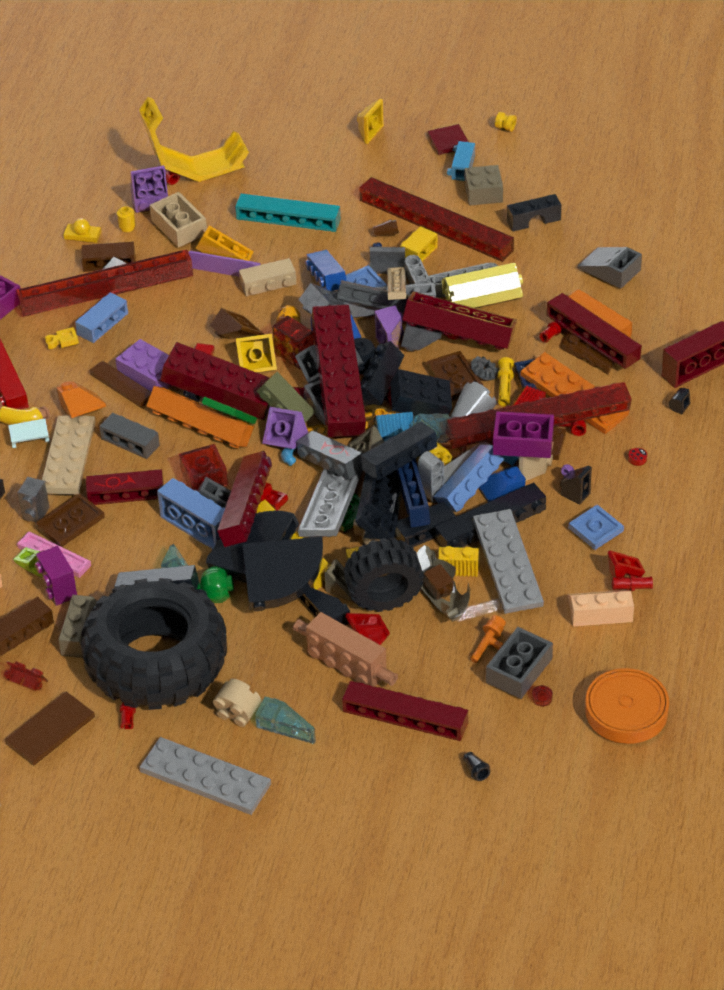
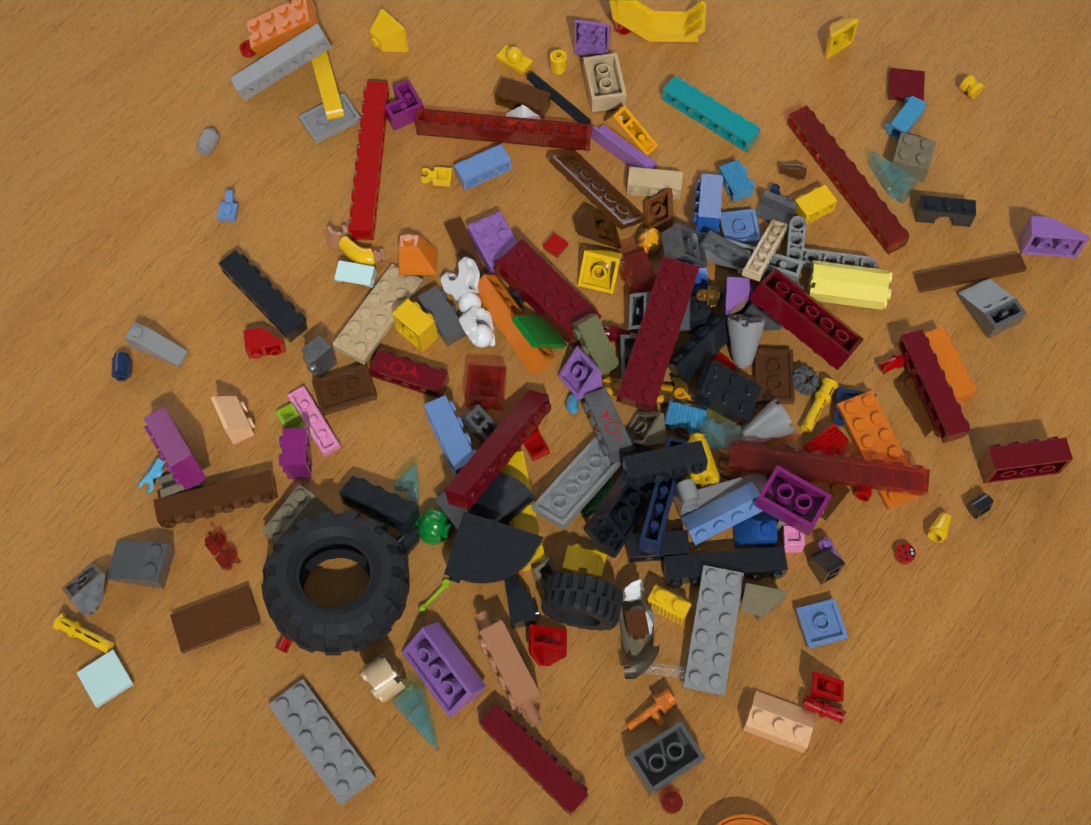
camera: 25 degrees right, 20 degrees up
(110, 447) = (415, 325): none -> yellow brick
(139, 247) = (557, 98): none -> black axle
(141, 406) = (474, 320): none -> white piece
(222, 298) = (597, 189): none -> reddish brown plate
(250, 624) = (445, 584): none -> lime hinge
(284, 292) = (659, 211): none -> dark orange slope
(286, 680) = (443, 668): none -> medium lavender slope
(342, 251) = (736, 181): none -> dark azure brick
(366, 332) = (712, 295): none -> pearl gold hinge
(414, 351) = (744, 338): none -> light grey cone
(476, 206) = (892, 178): none -> clear light blue slope
(536, 524) = (761, 600): none -> dark tan slope
(539, 475) = (793, 539): none -> bright pink panel
(579, 249) = (970, 272): none -> reddish brown tile
(633, 200) = (1051, 238): none -> medium lavender slope
(656, 428) = (939, 529): none -> yellow cone

